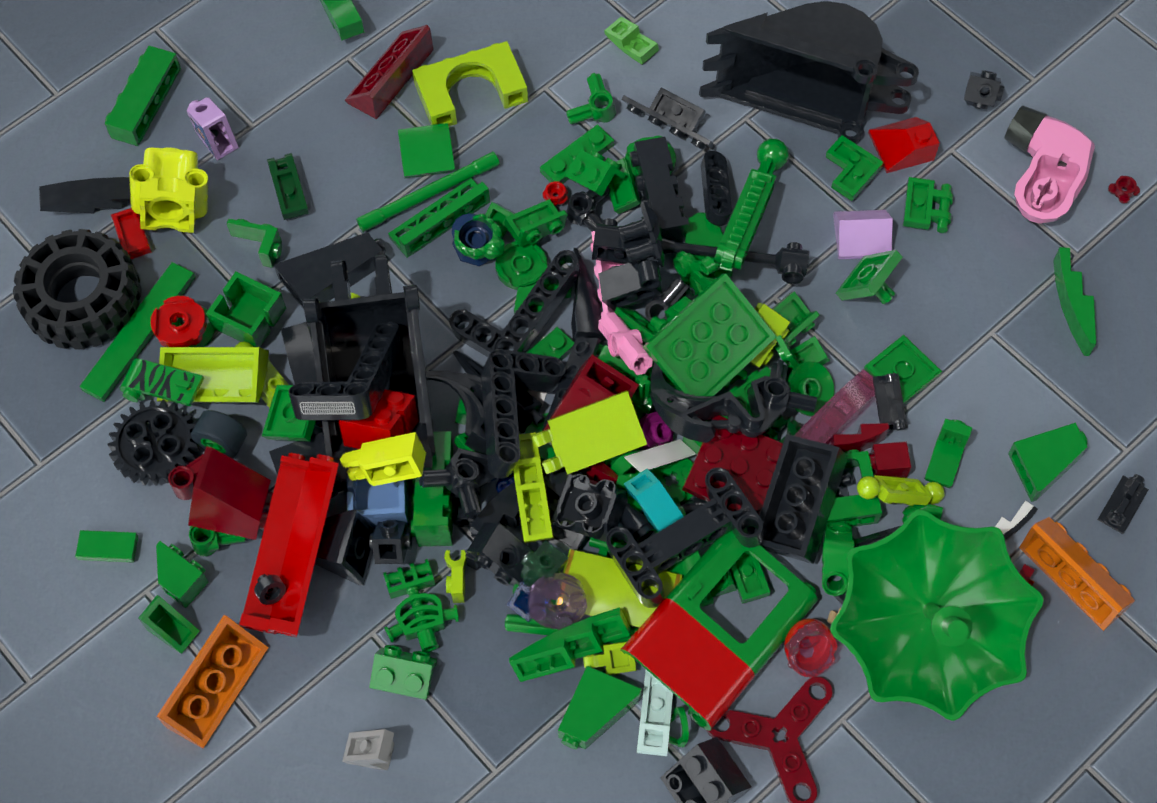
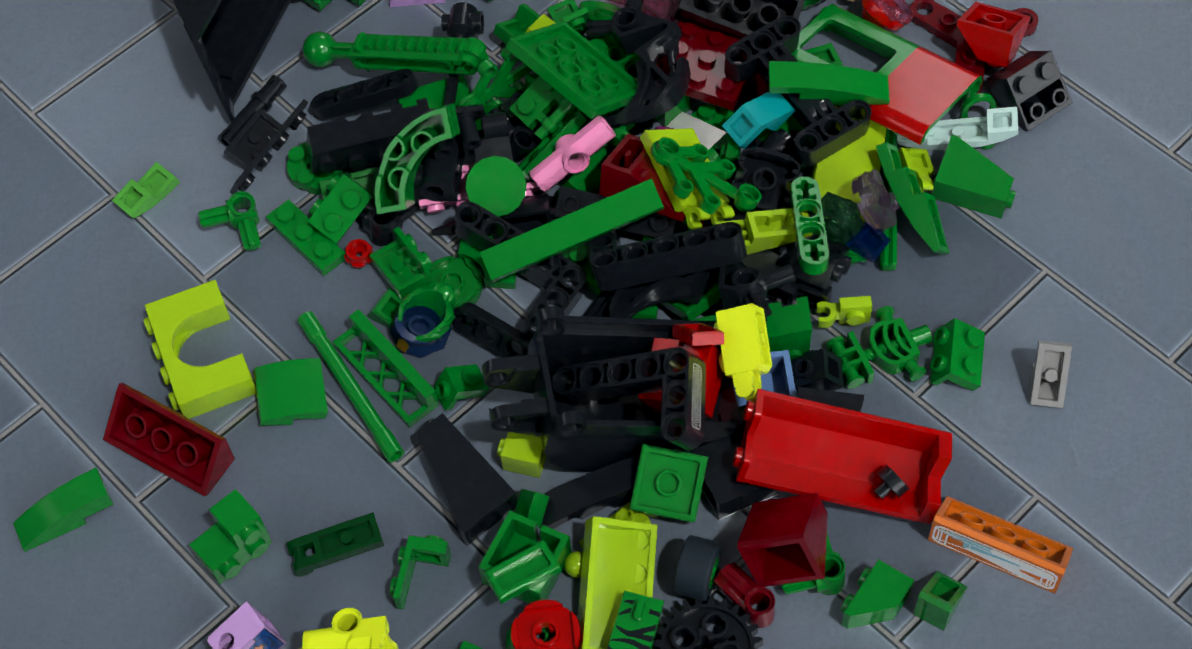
camera: 90 degrees left, 5 degrees down
(223, 299) = (522, 571): none -> green tile
(291, 318) = (532, 505): none -> green slope
(297, 115) = (233, 539): none -> green brick
(401, 421) = (697, 334): none -> red tile
(418, 269) = (459, 383): none -> green bracket
(456, 300) = (477, 330): none -> black beam
(520, 526) = (809, 225): none -> green beam
(536, 339) = (572, 230): none -> green tile
(582, 439) = (670, 154): none -> green plant
(596, 283) = (496, 185): none -> green tile
(607, 200) = (404, 154): none -> green brick
(679, 559) = (829, 82): none -> green slope
(716, 113) = (261, 99): none -> black pin
(772, 746) = (993, 33): none -> red slope

